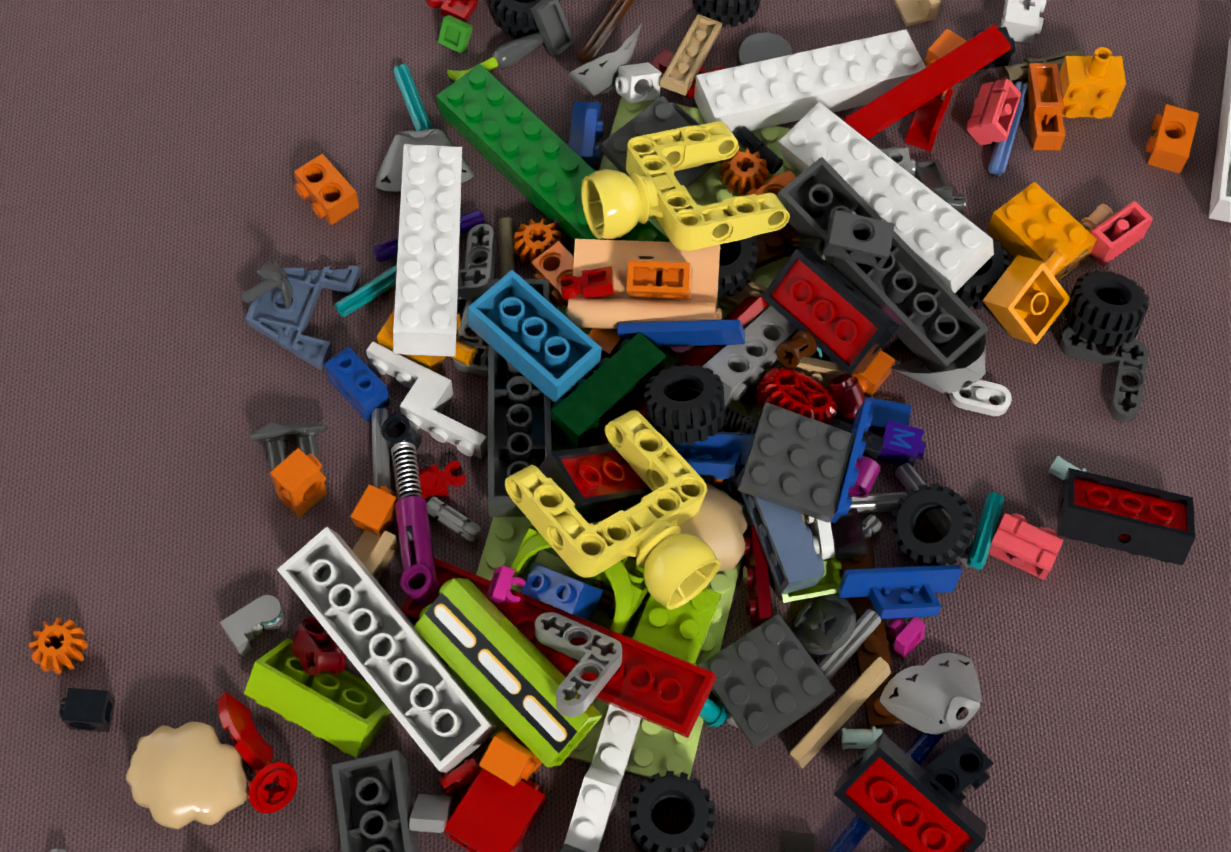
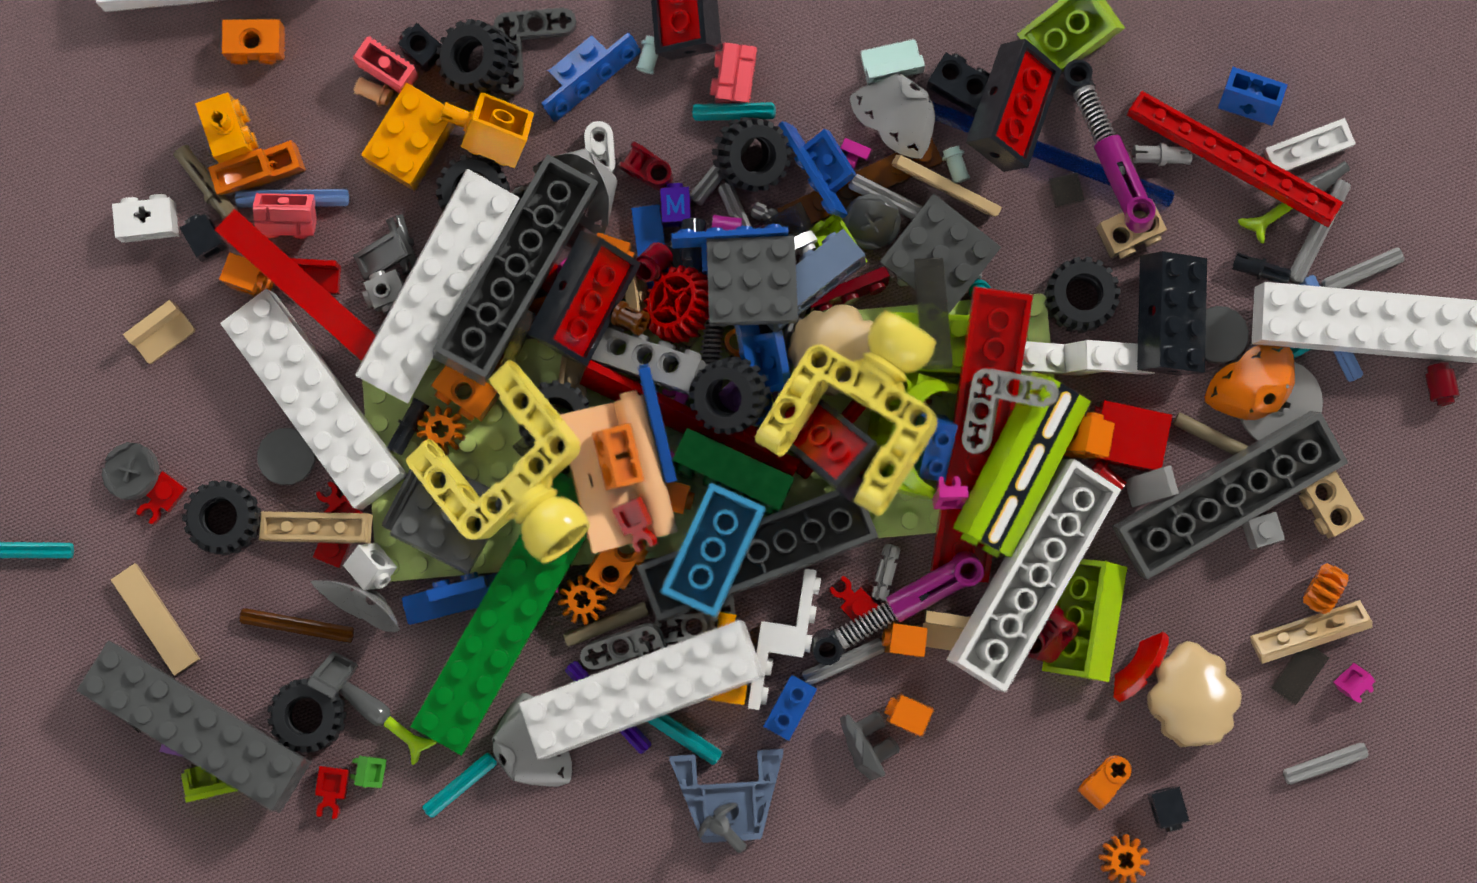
camera: 105 degrees left, 20 degrees up
(144, 655) = (1101, 785): none -> orange piece
(251, 621) = (1033, 699): light grey leg -> none
(277, 797) = (1176, 624): red gear -> none
(330, 186) = (589, 820): orange brick -> none
(703, 634) = (933, 309): none -> clear smoke tile
(844, 245) = (510, 272): dark grey brick -> none
(952, 429) = (641, 165): none -> dark red piece
(998, 713) = (892, 59): none -> light aqua panel
(1065, 408) = (585, 71): none -> blue bracket
(1136, 261) = (424, 58): none -> black brick

